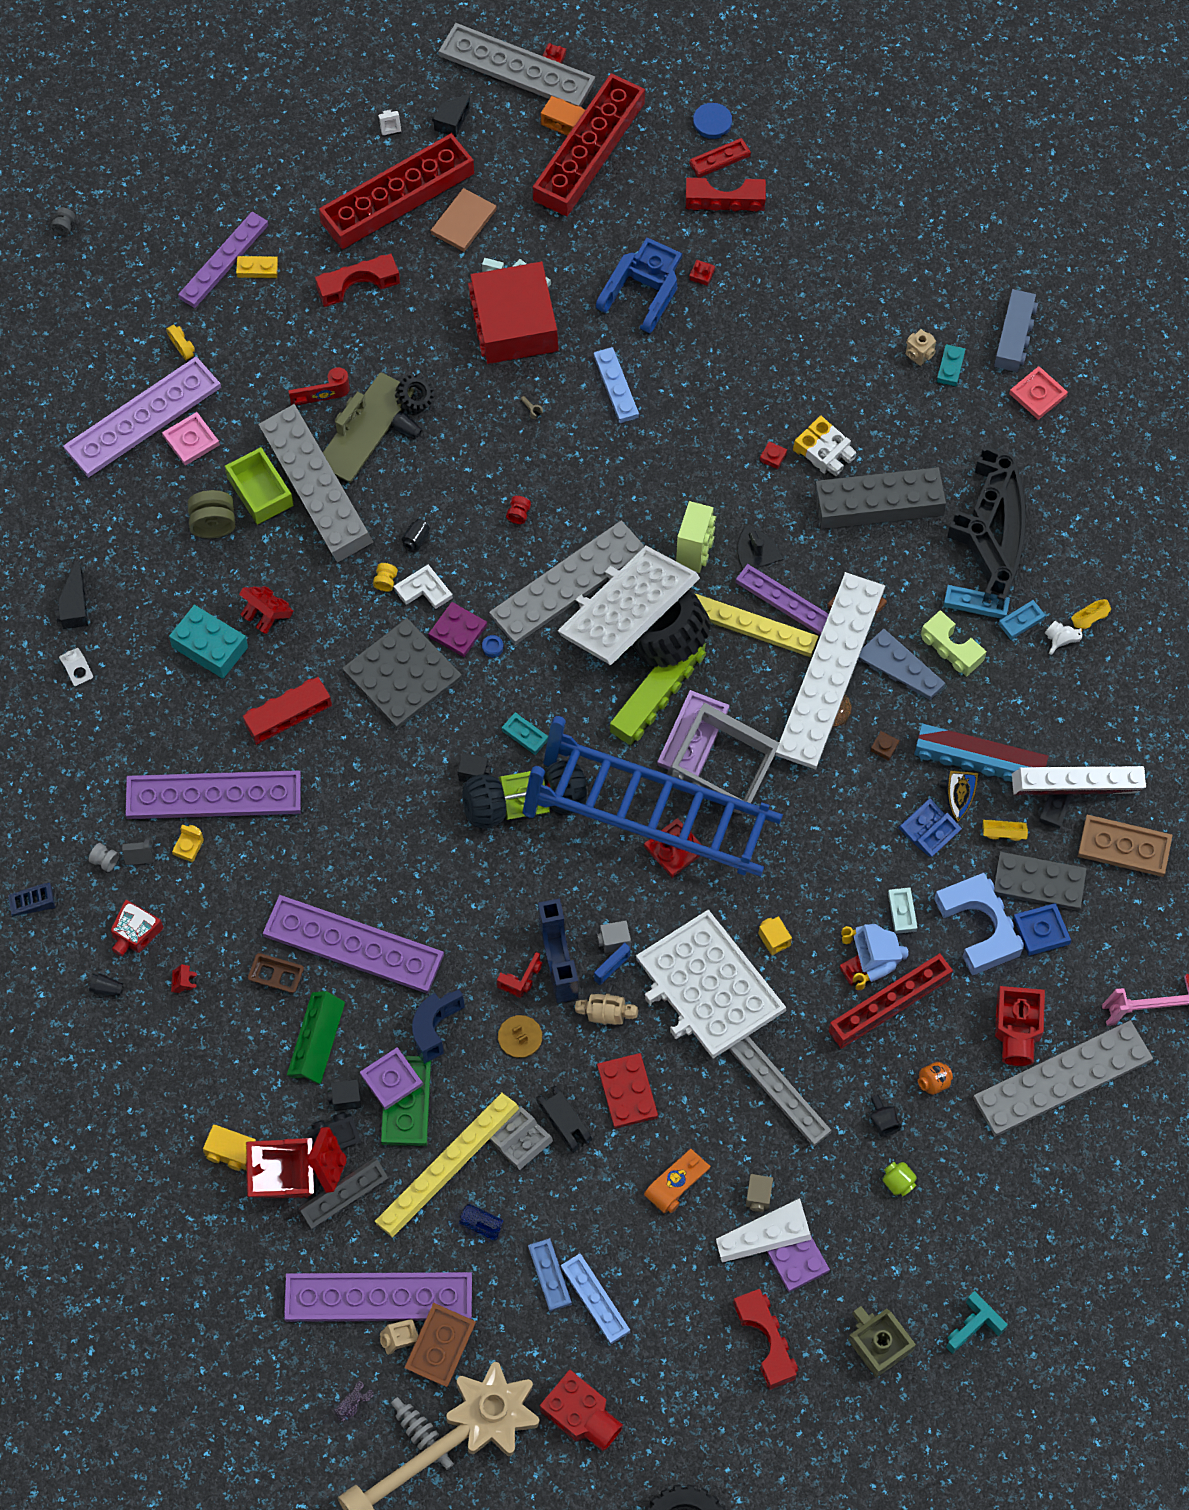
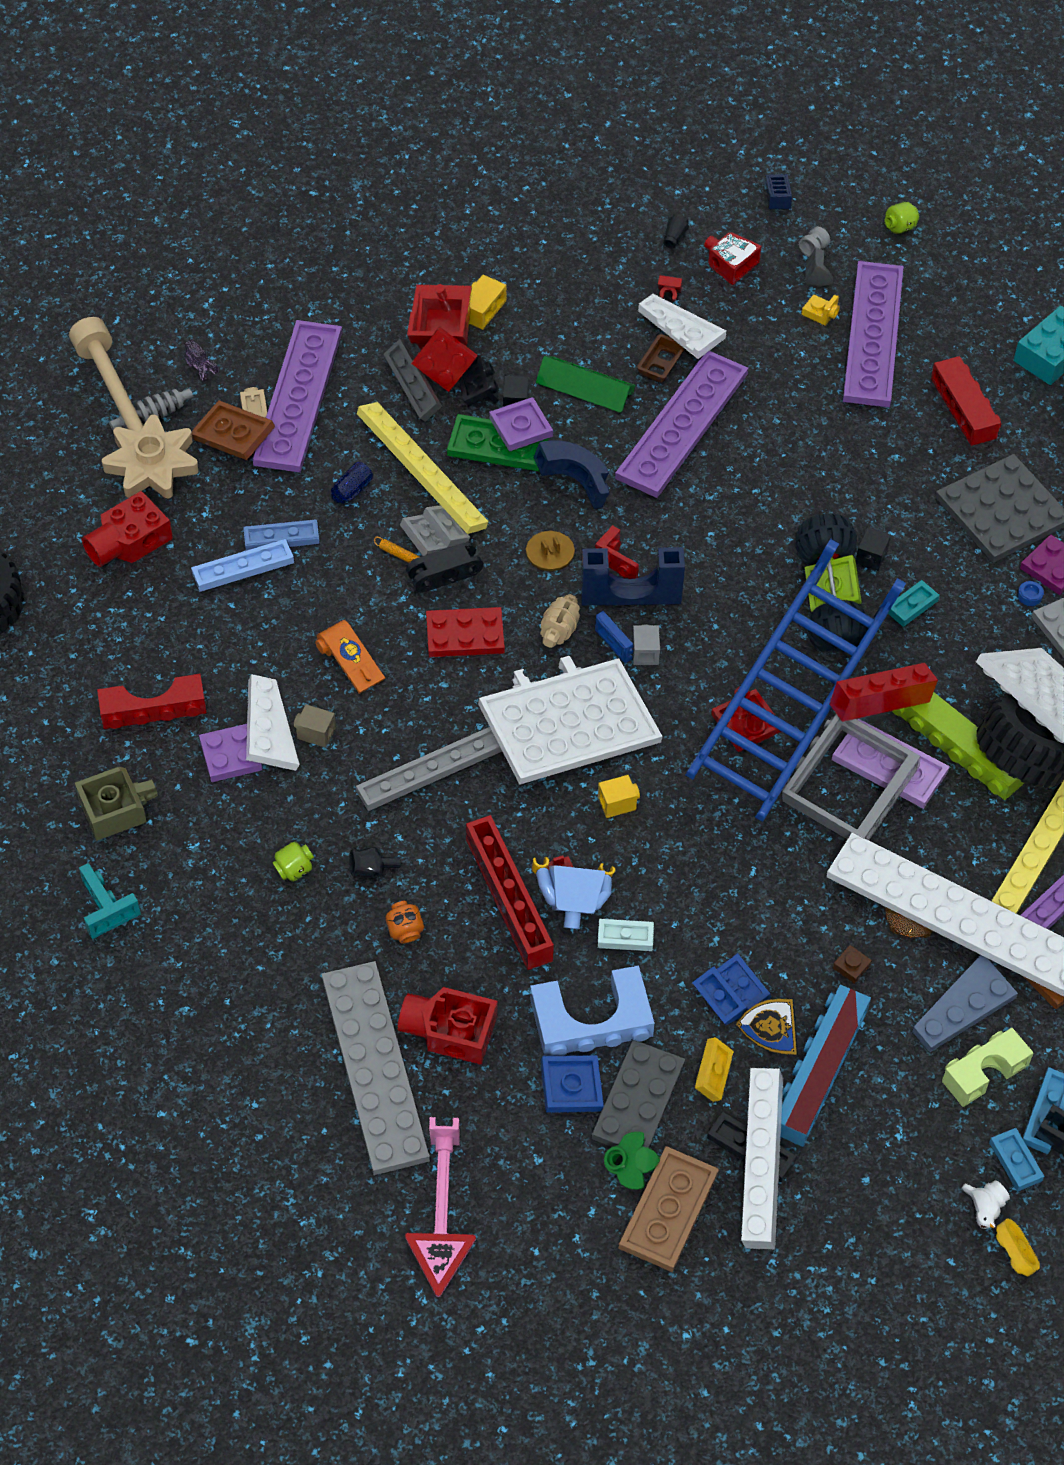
camera: 100 degrees right, 10 degrees down
(60, 784) = (901, 217): none -> lime head
(73, 660) = (1040, 238): white bracket -> none
(239, 954) = (682, 326): none -> white wing
(550, 1164) = (396, 550): none -> light orange piece
(650, 733) = (883, 692): none -> red brick
(1096, 873) = (635, 1163): none -> green plate

